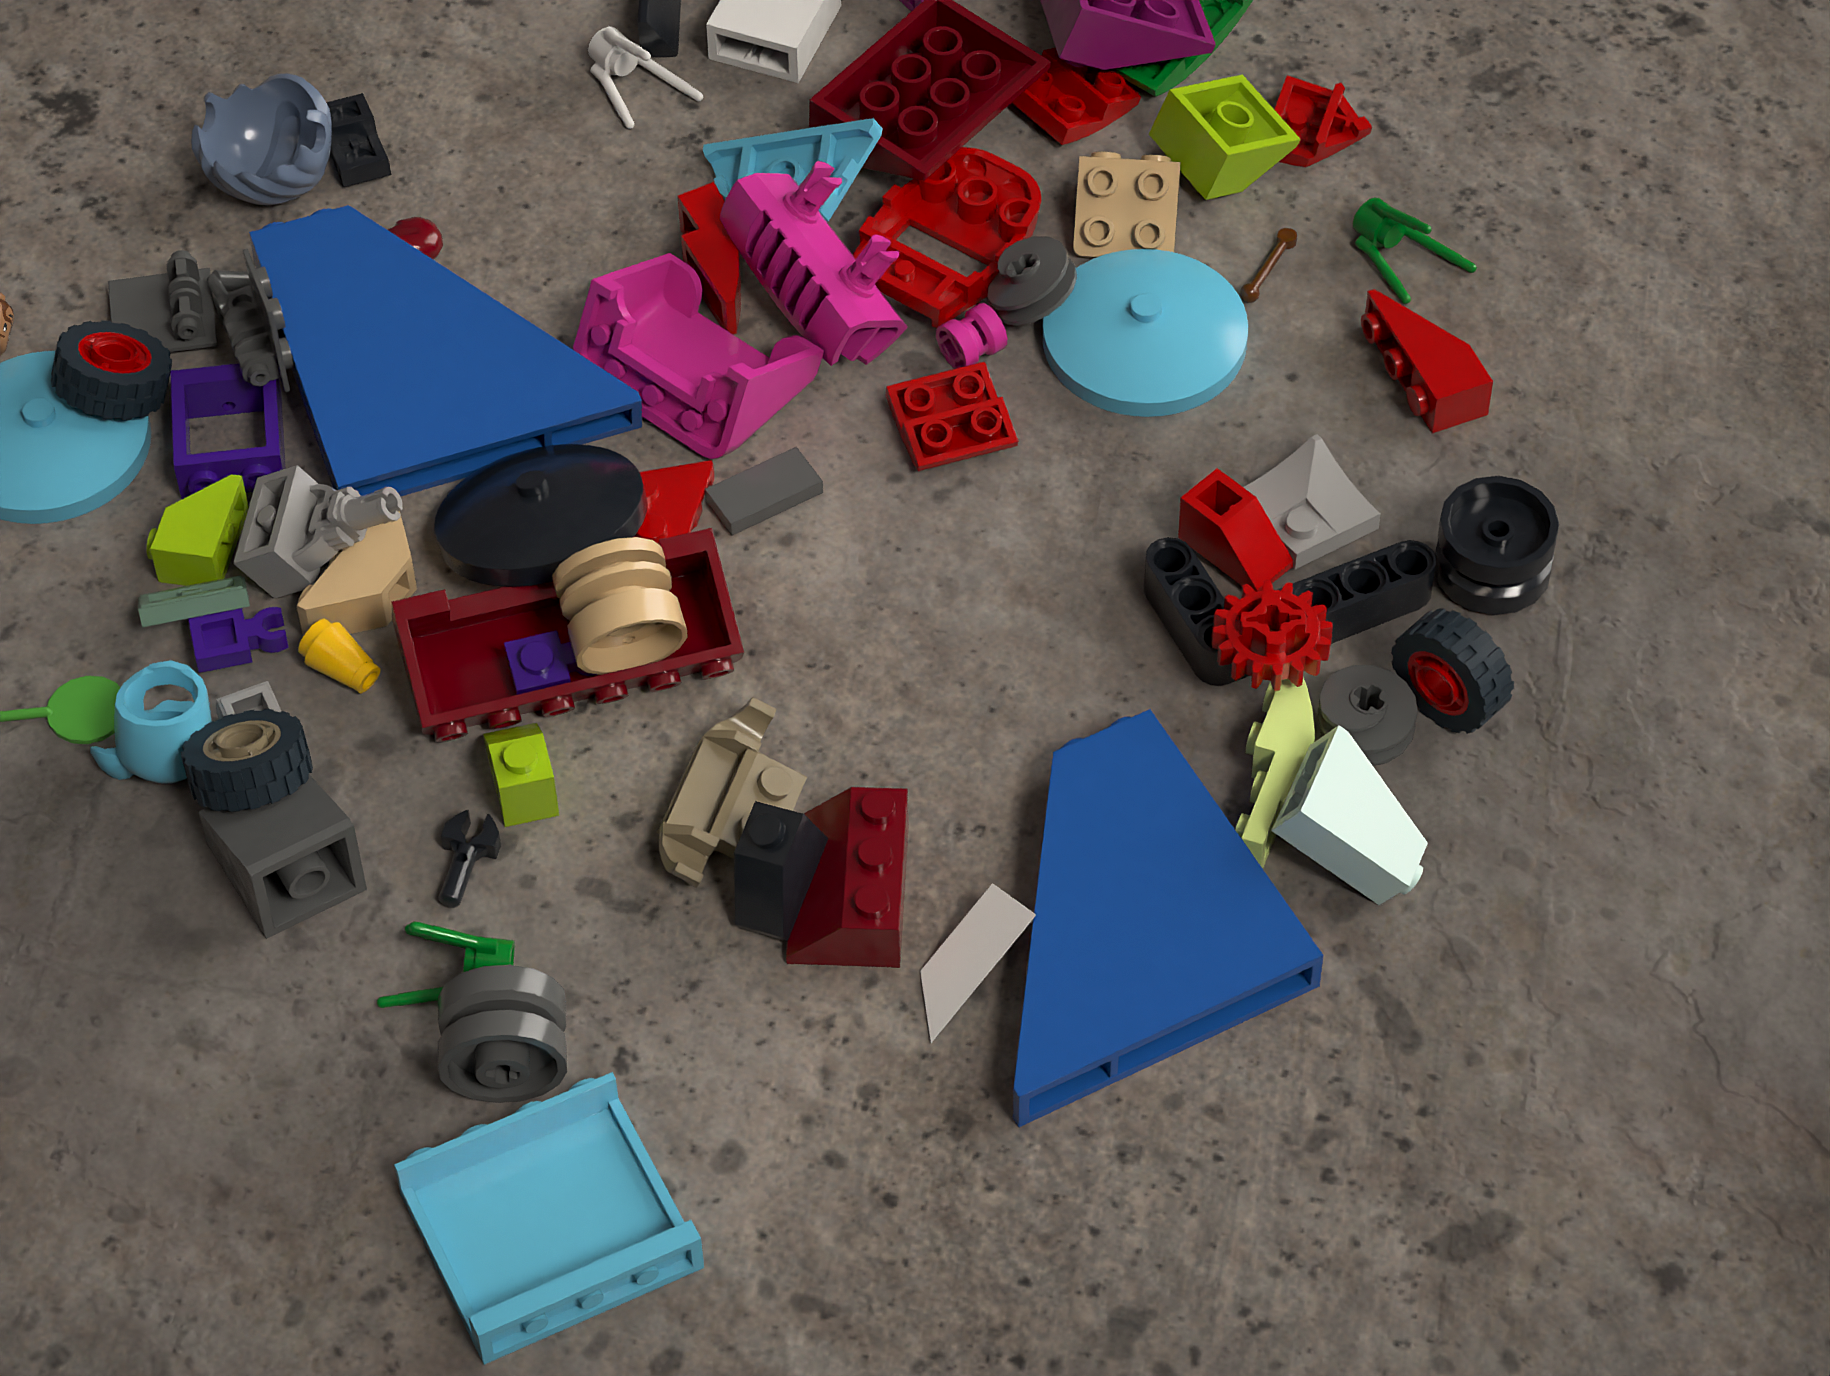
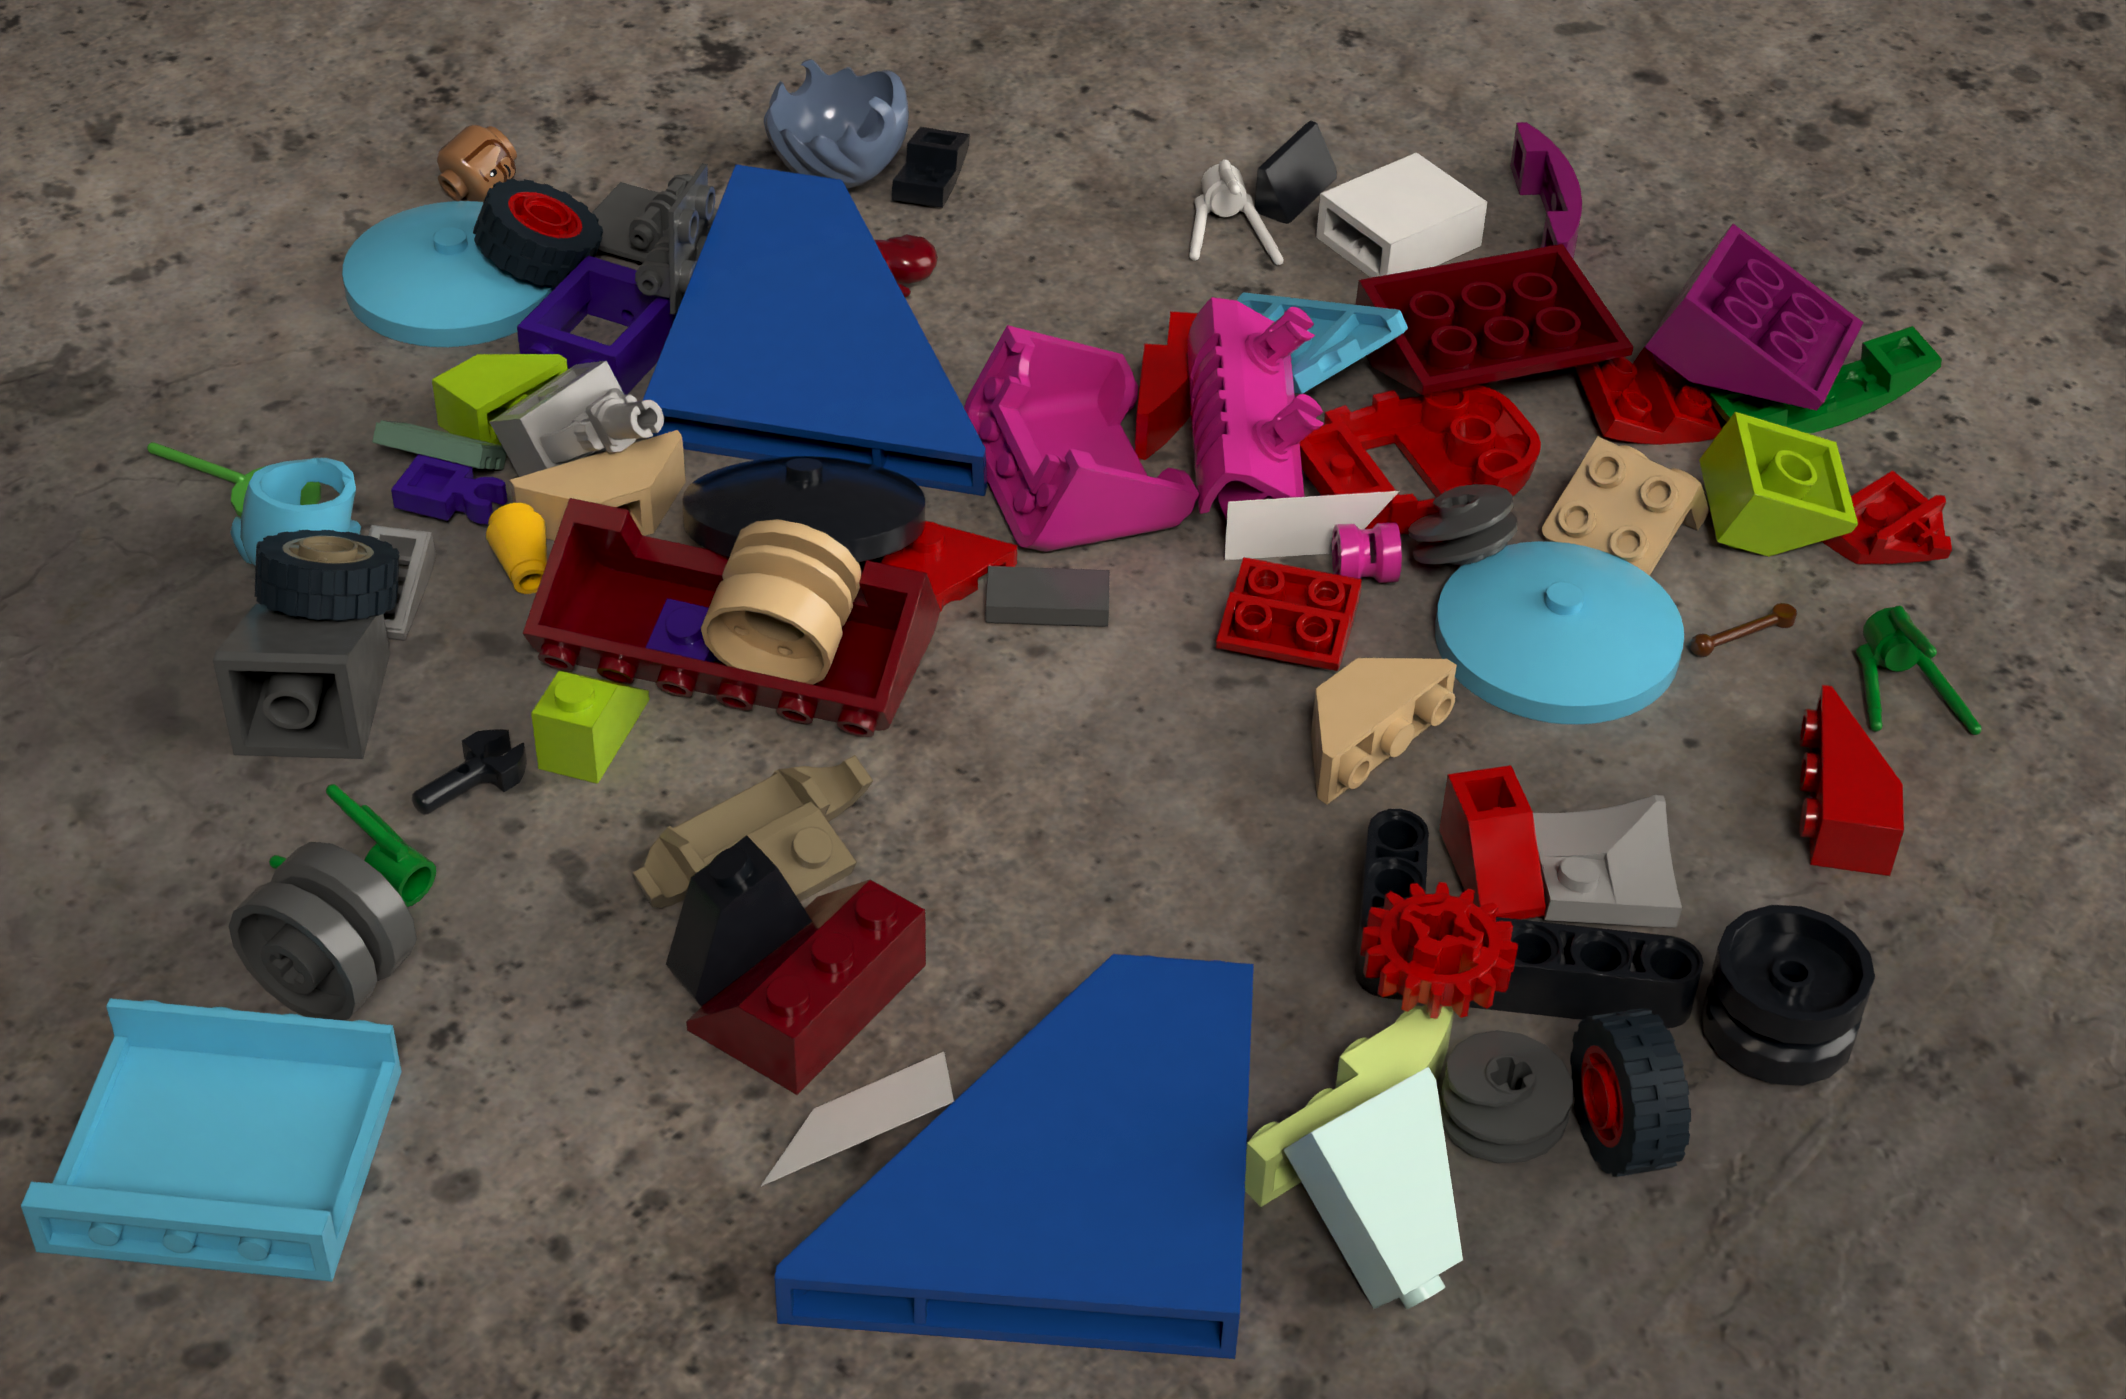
camera: 30 degrees right, 10 degrees down
(908, 338) = (1296, 524): none -> white sticker
(1074, 473) = (1374, 714): none -> tan slope

